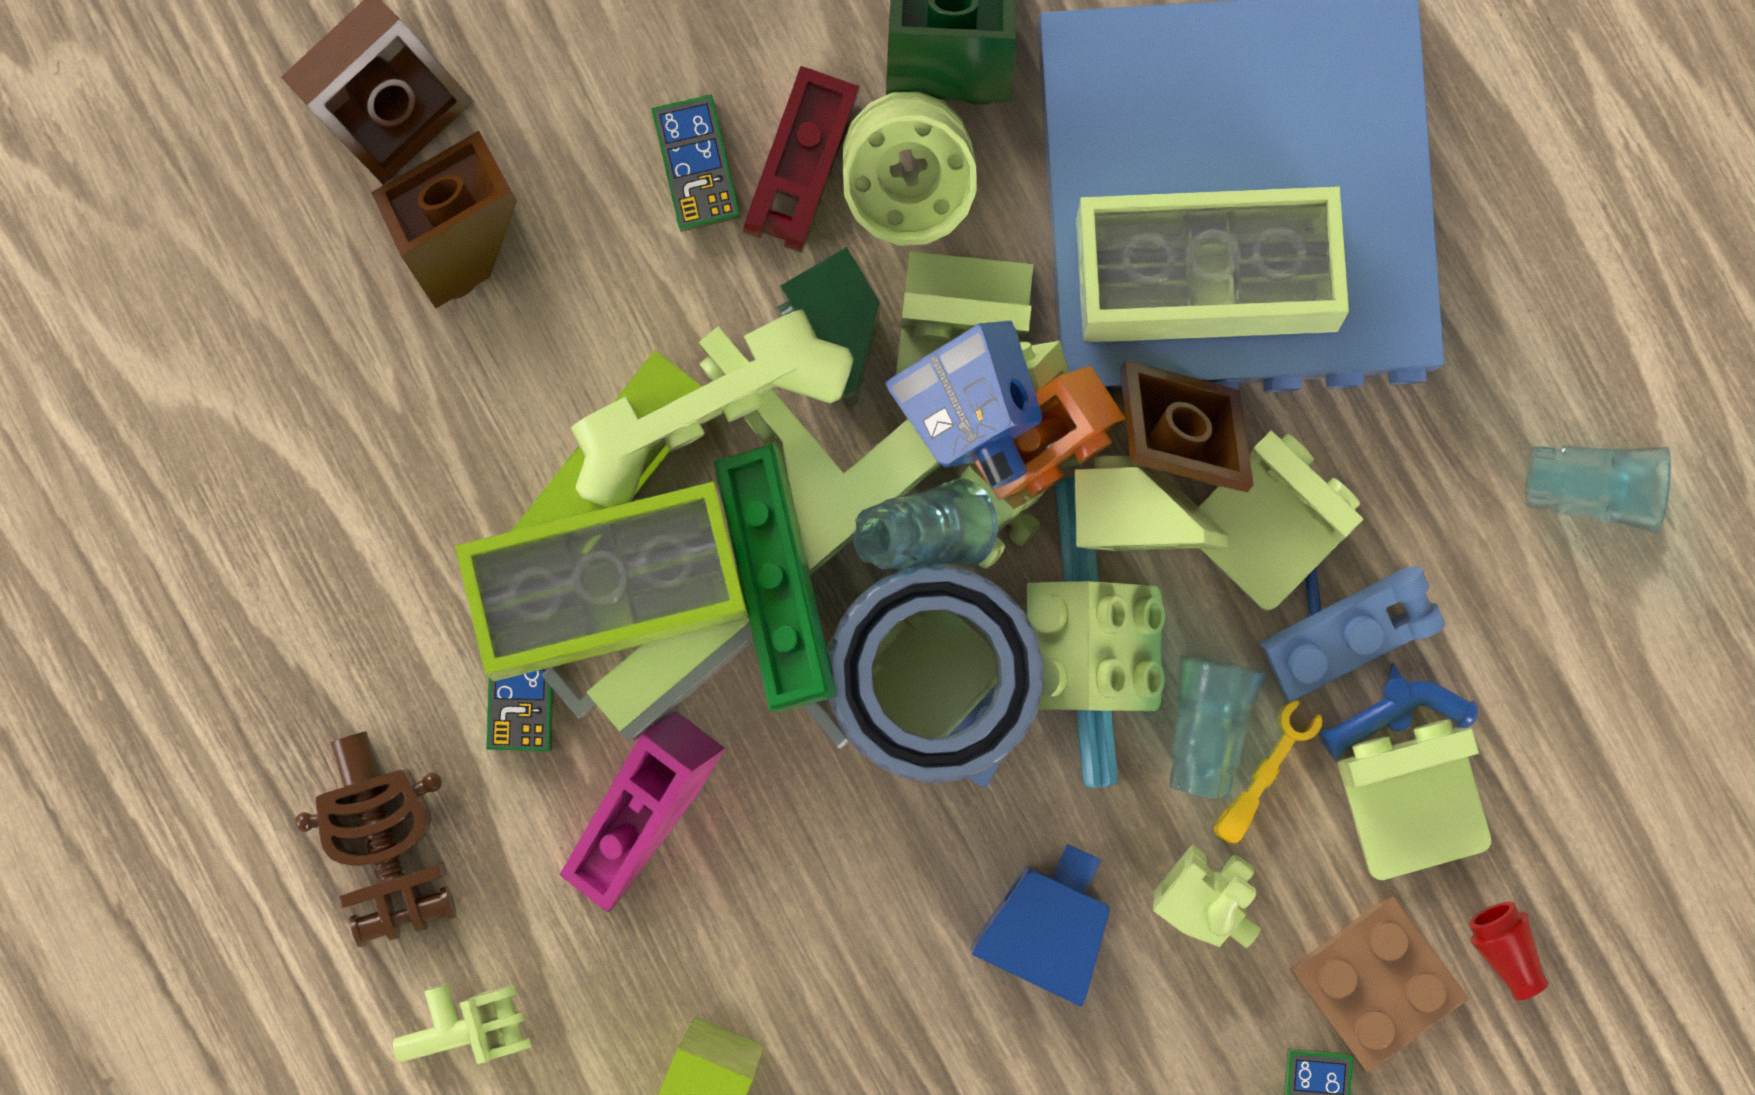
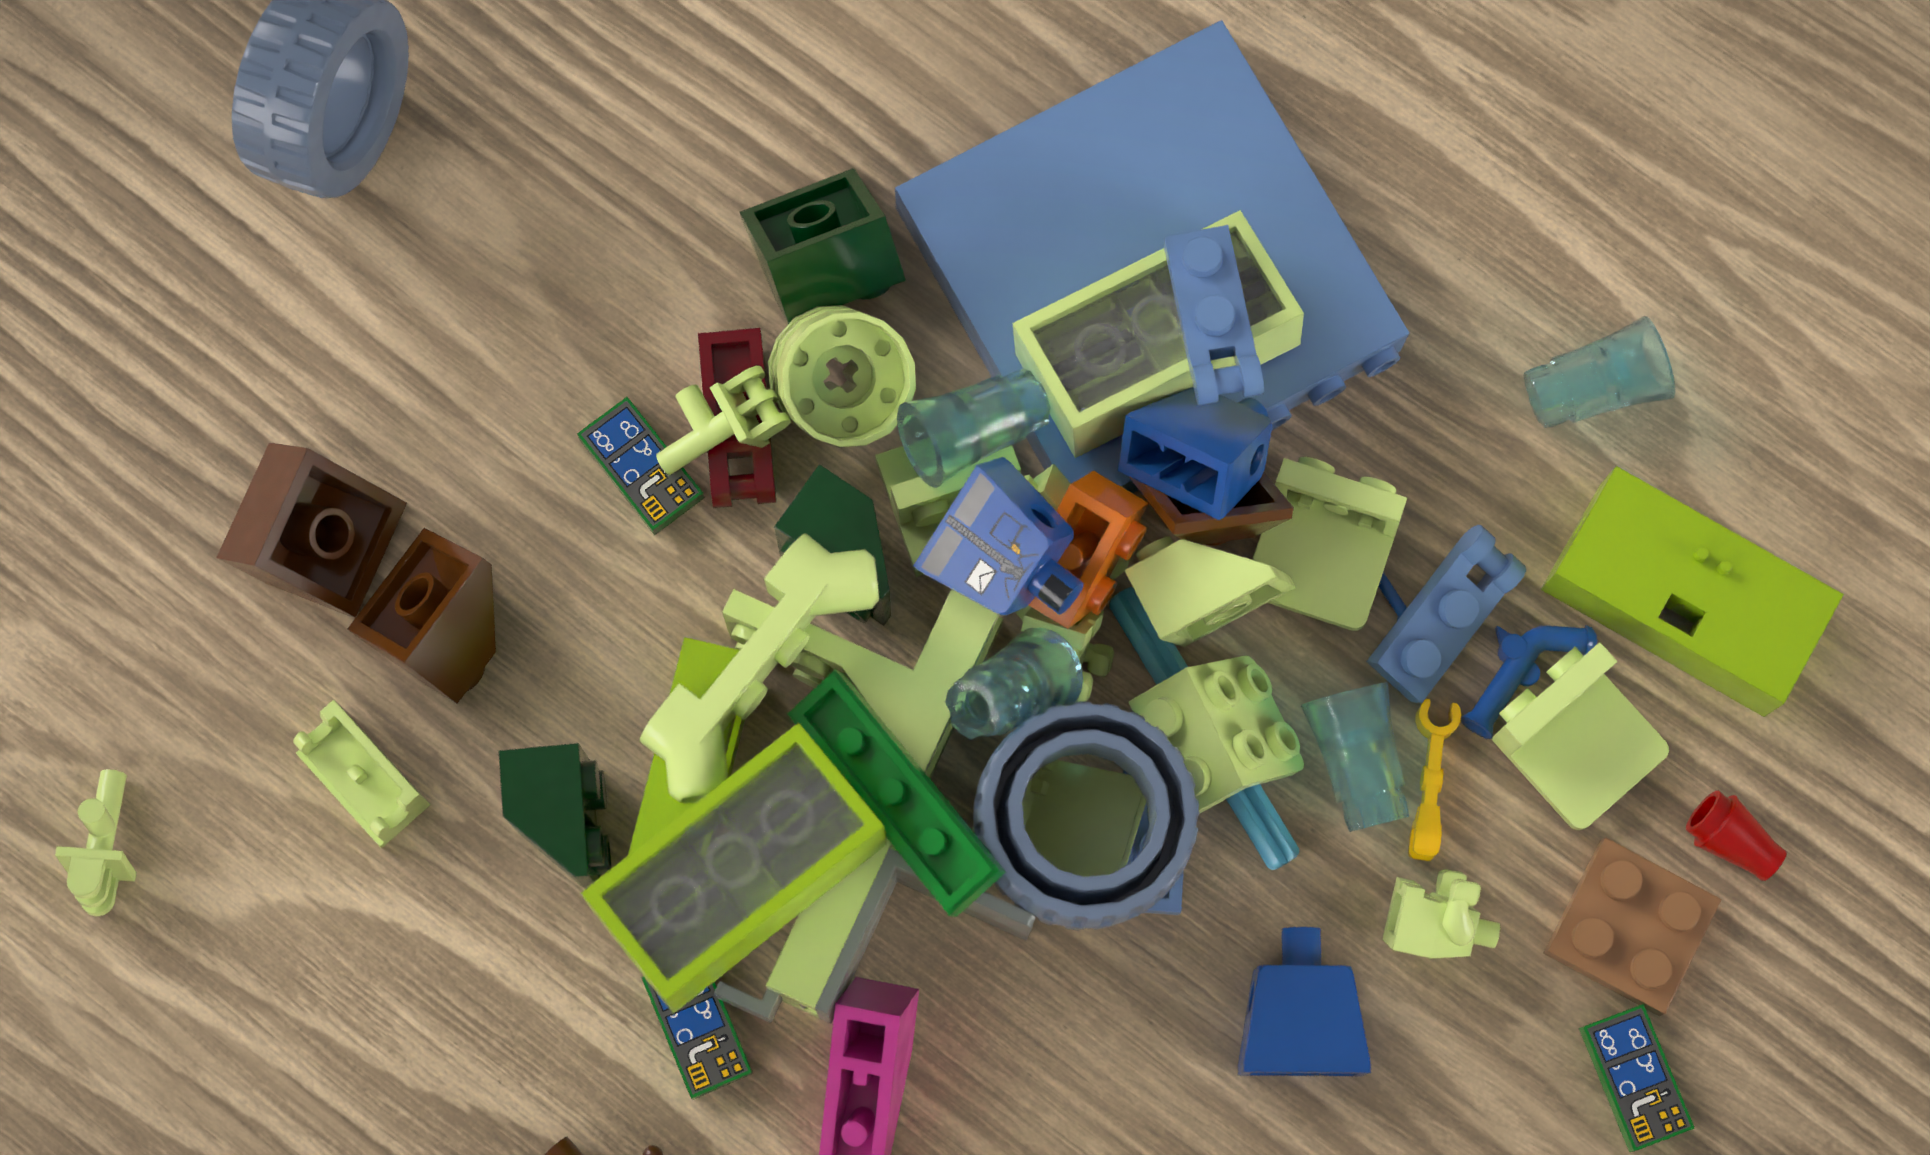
camera: 30 degrees left, 10 degrees down
(59, 312) = (98, 868): none -> yellowish green arm
(326, 330) = (360, 775): none -> yellowish green hinge
(476, 448) = (553, 804): none -> dark green slope
(806, 162) = (736, 418): none -> yellowish green arm
(1002, 270) = (970, 424): none -> clear light blue plant
(1195, 390) = (1196, 452): none -> blue torso
(1264, 274) = (1212, 313): none -> medium blue plate
(1582, 717) = (1692, 592): none -> lime brick

